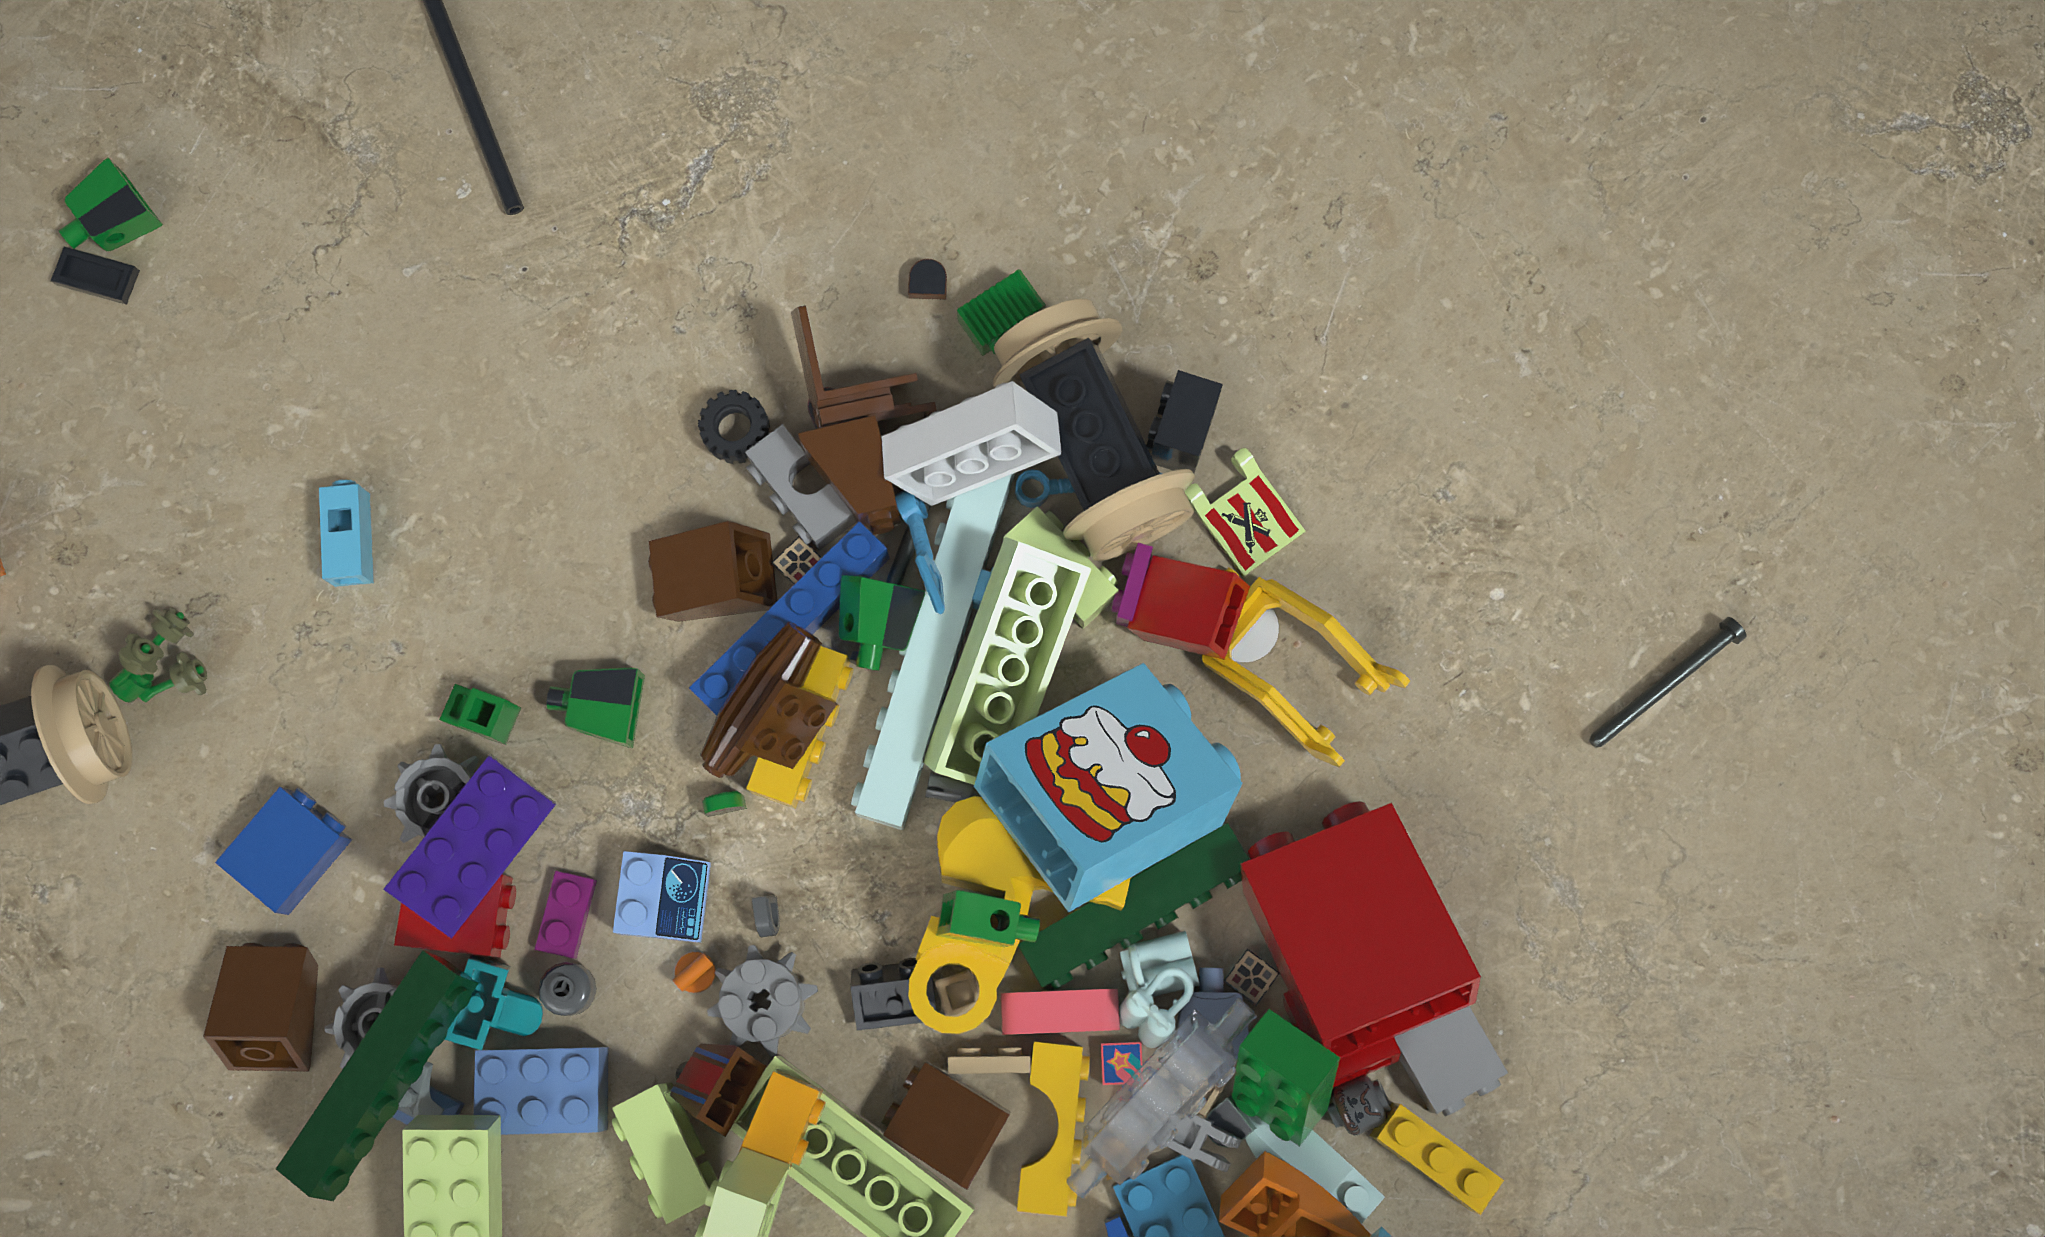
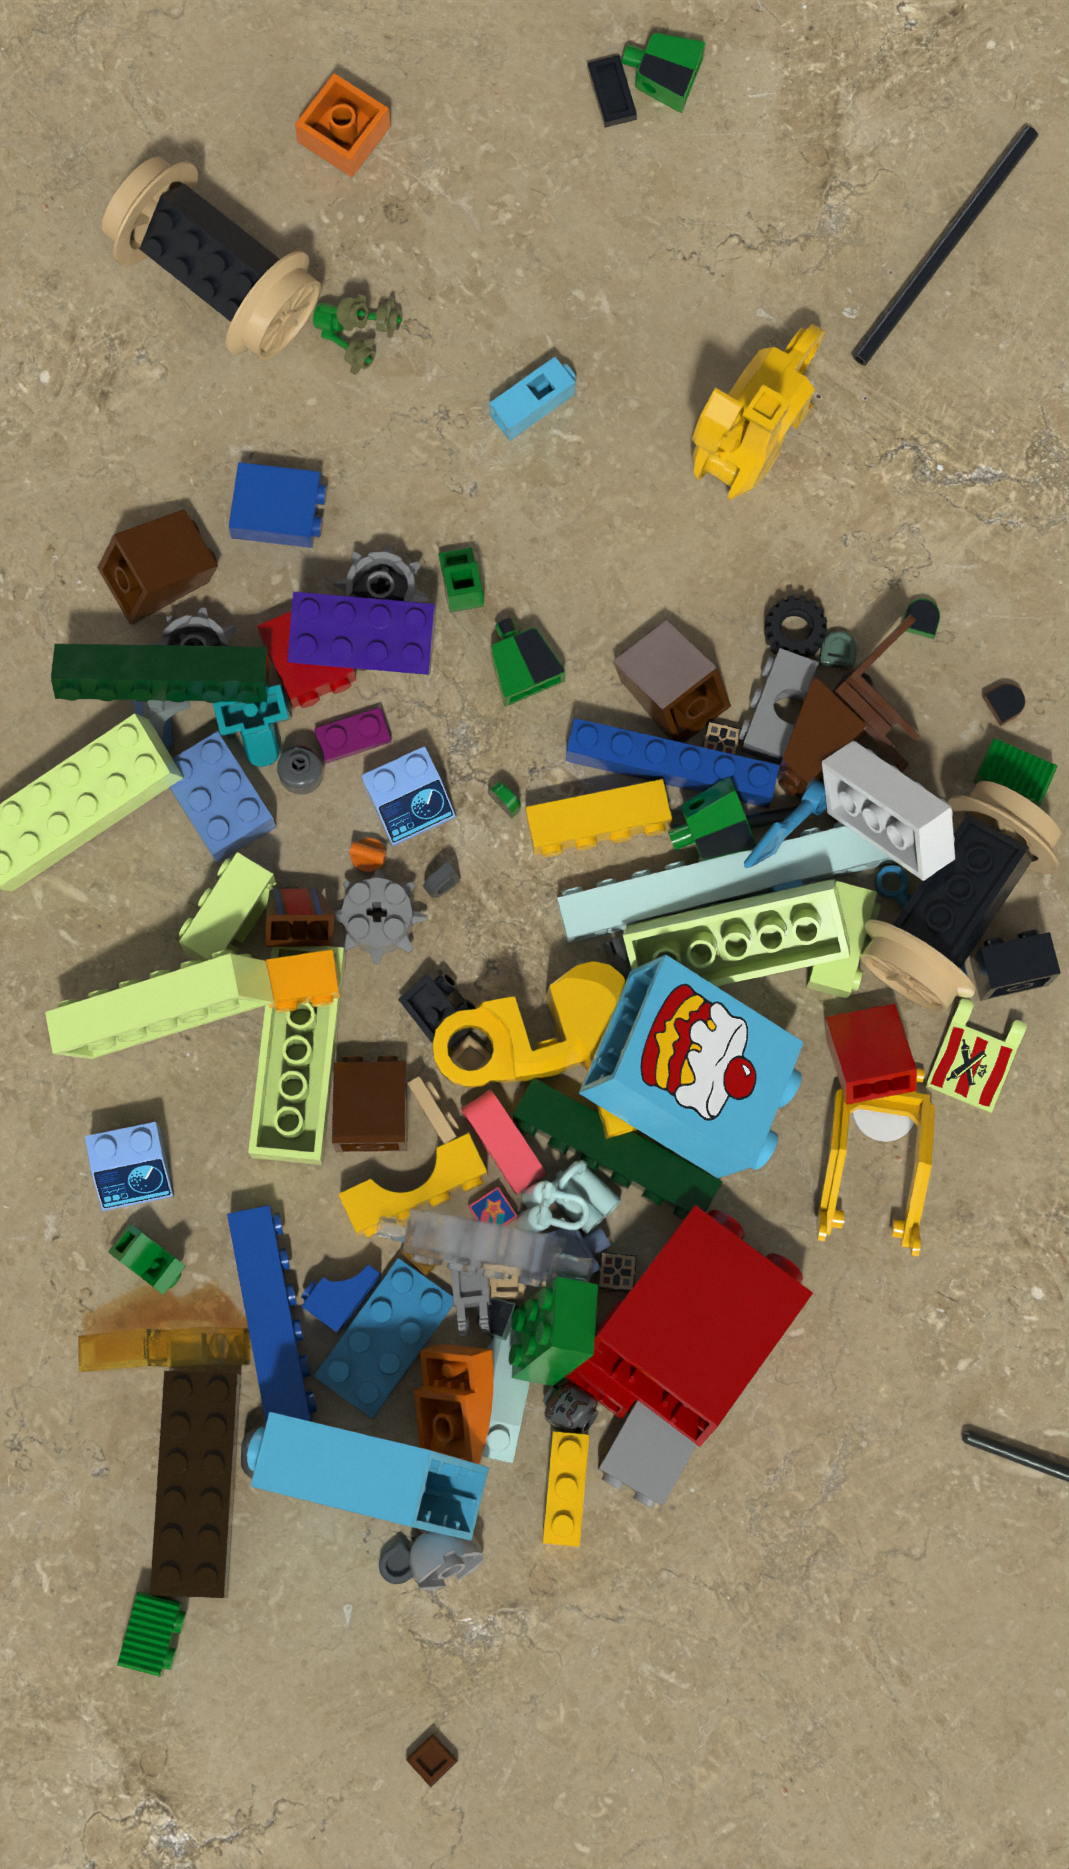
camera: 55 degrees right, 0 degrees up
(505, 336) = (745, 430): none -> yellow animal
(769, 708) = (594, 784): reddish brown plate -> none
(781, 400) = (838, 651): none -> sand green tile
(799, 296) = (926, 616): none -> black tile
(968, 917) = (526, 1021): green torso -> none
(1135, 568) = (876, 996): magenta plate -> none

